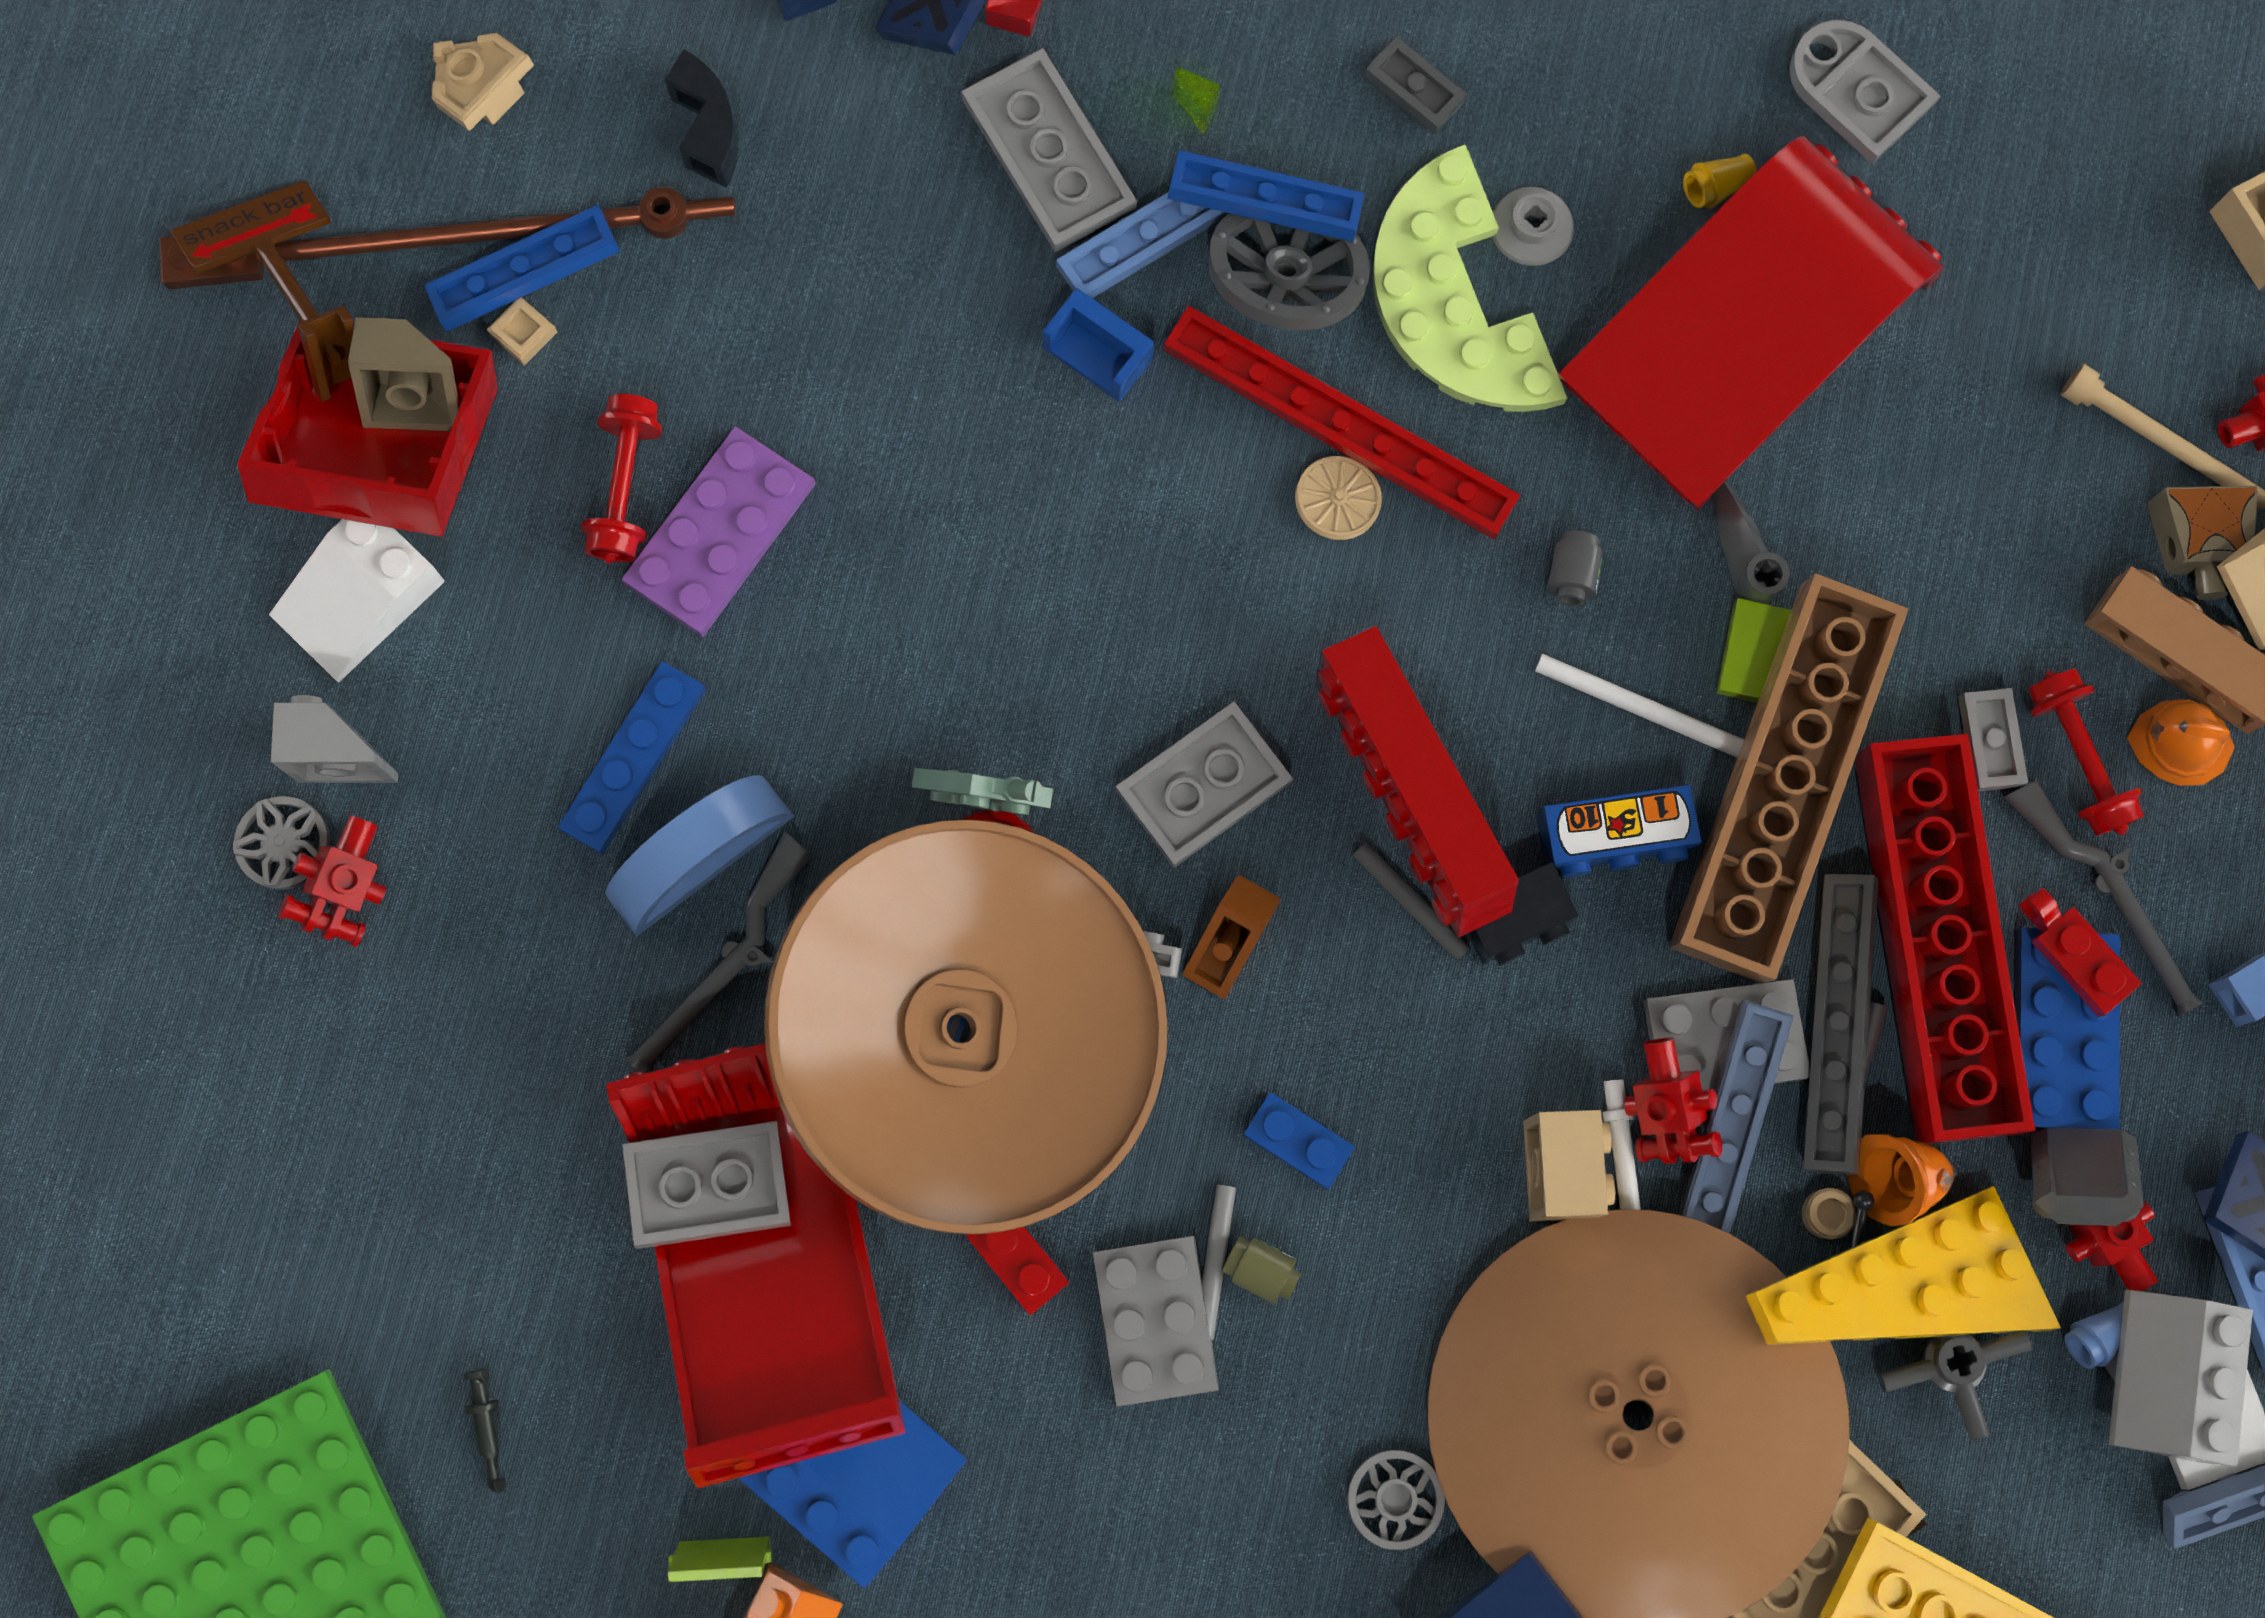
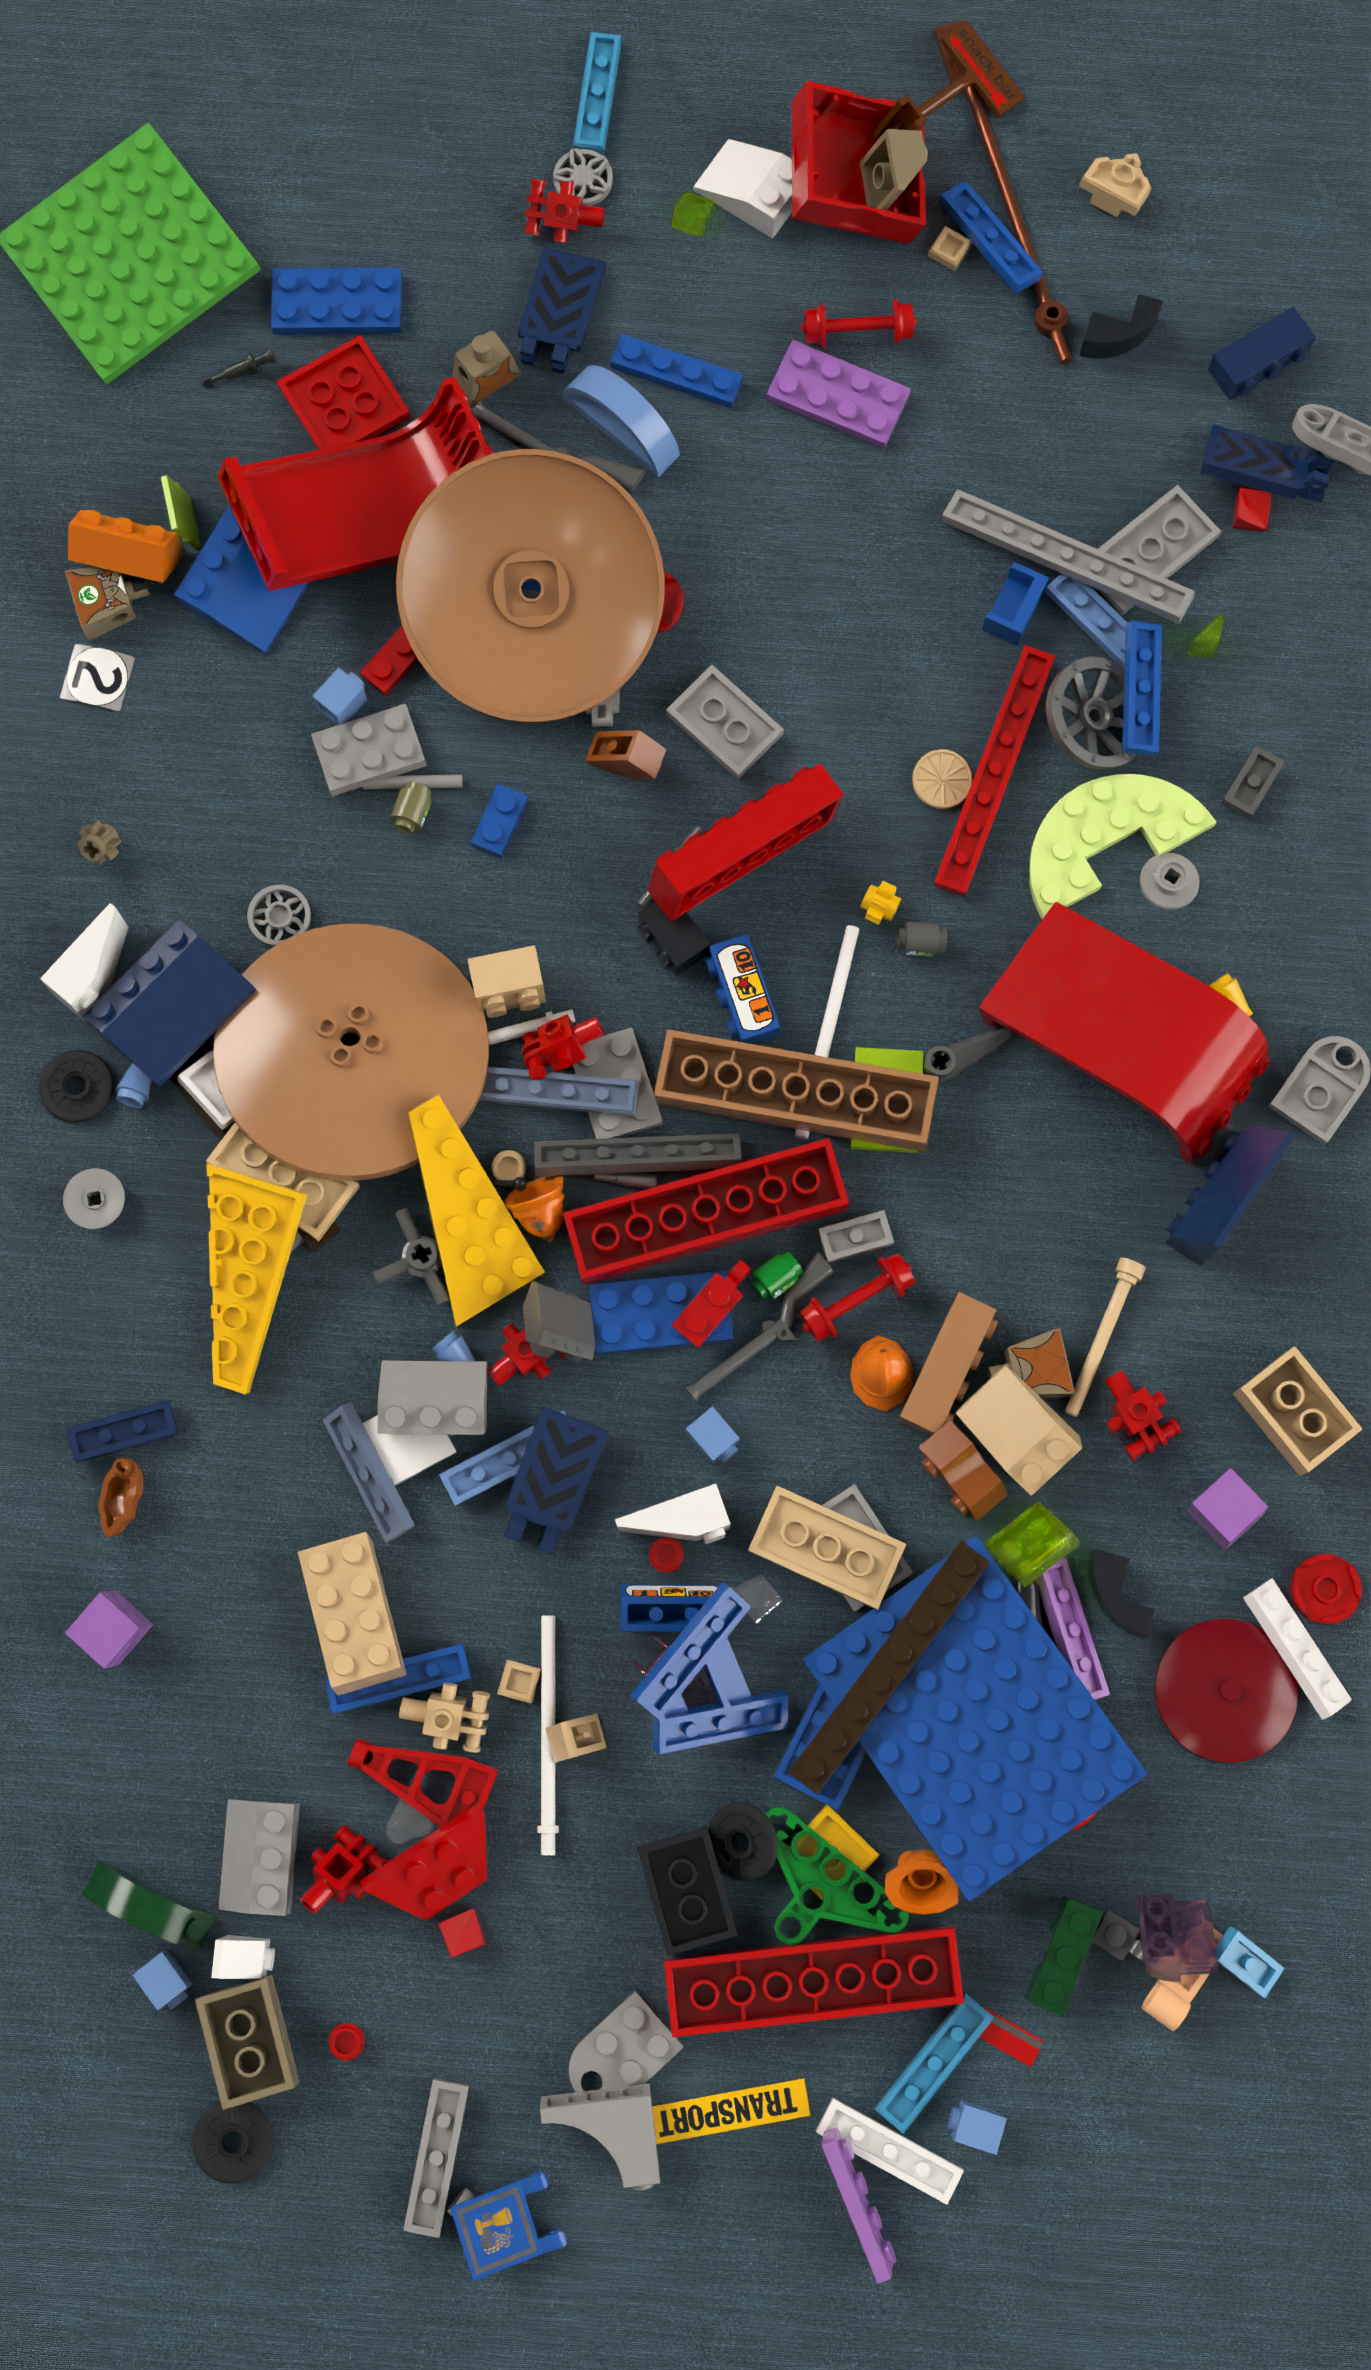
camera: 85 degrees right, 0 degrees up
(143, 796) = (597, 92): none -> dark azure tile
(322, 747) = (646, 182): light grey slope -> none
(379, 689) = (692, 213): none -> clear neon green slope
(402, 1258) = (336, 300): none -> blue plate
(487, 912) = (560, 305): none -> dark blue tile
(572, 1272) = (343, 396): none -> red plate
(575, 1044) = (484, 367): none -> dark tan torso
(706, 1185) = (404, 456): light grey plate -> none
(982, 791) = (688, 562): sand green plate -> none
(1047, 257) = (1068, 556): none -> light grey plate
(1066, 1349) = (340, 696): none -> medium blue brick
(1516, 613) = (880, 902): none -> yellow gear
(2012, 224) = (1227, 1192): none -> dark blue slope
(2038, 859) = (776, 1276): none -> green brick

